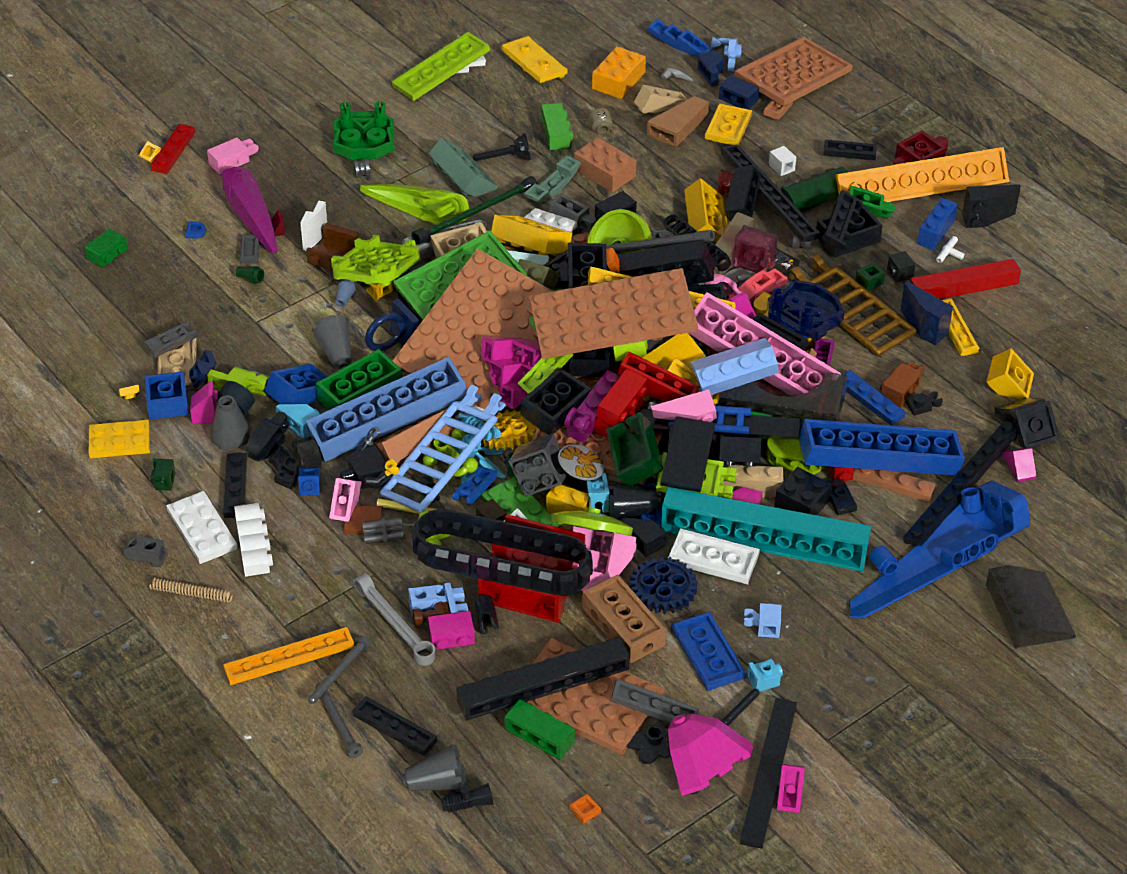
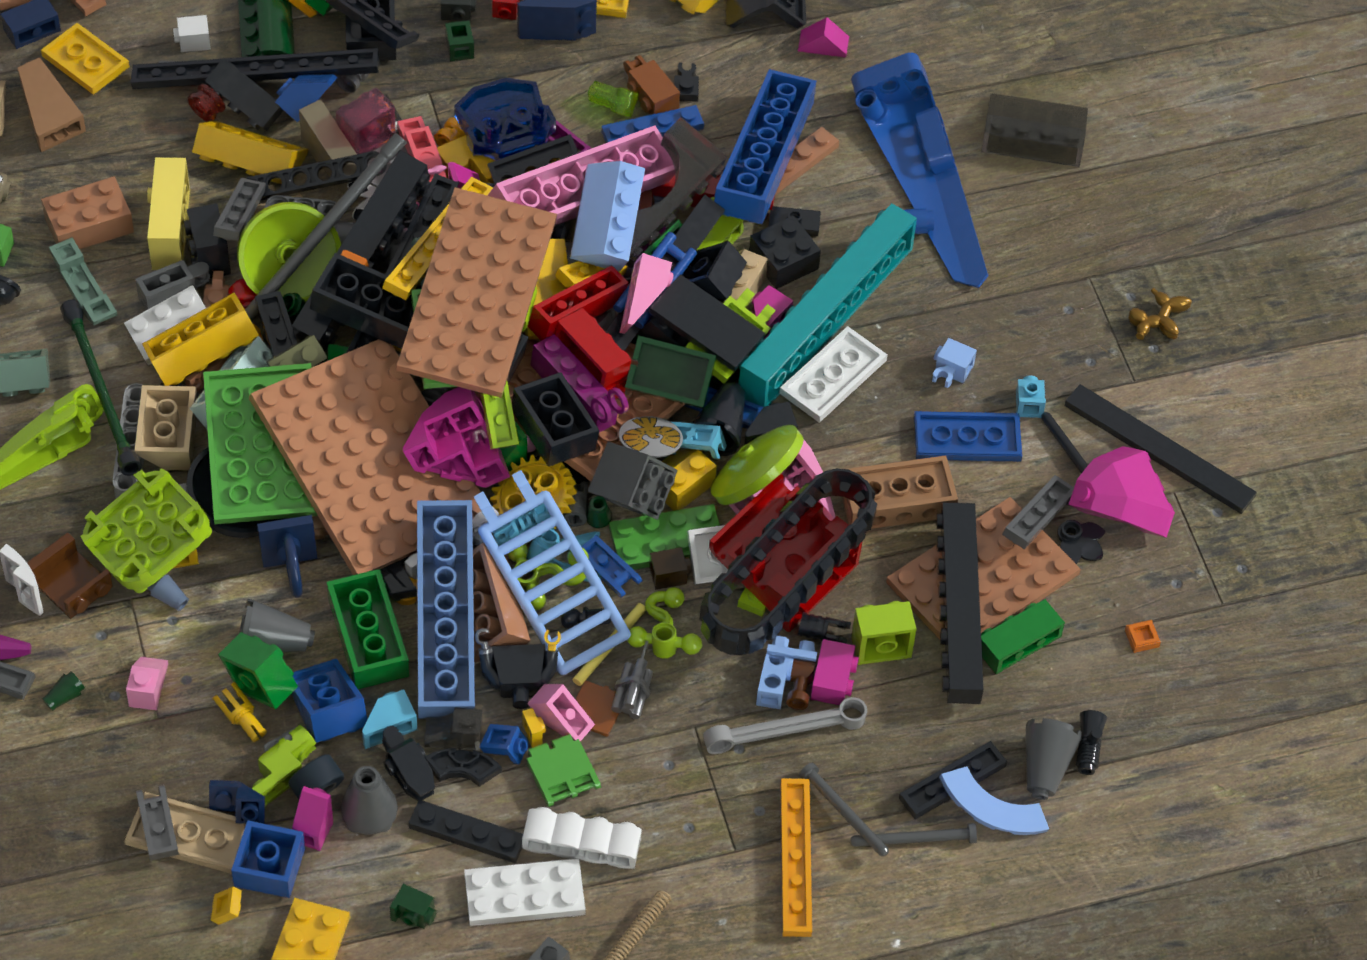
camera: 70 degrees left, 10 degrees up
(272, 351) = (242, 713): none -> yellow arm
(274, 304) = (146, 683): none -> bright pink slope
(296, 341) = (258, 669): none -> green brick
(302, 514) = (561, 770): none -> bright green plate
(325, 488) = (533, 727): none -> yellow plate
(376, 753) = (990, 810): none -> light blue tile
(493, 642) = (883, 632): none -> lime brick
(642, 184) = (168, 208): none -> light yellow brick
(650, 214) = (239, 209): none -> dark grey plate
(664, 584) = (877, 431): dark blue gear -> none
(764, 217) = (302, 92): none -> blue slope
(790, 788) = (1198, 435): dark pink slope -> none
(827, 272) = (432, 105): pearl gold bar -> none
(877, 367) = (617, 99): none -> clear neon green piece
(892, 737) = (1166, 325): none -> pearl gold piece
(966, 478) = (833, 103): black plate -> none

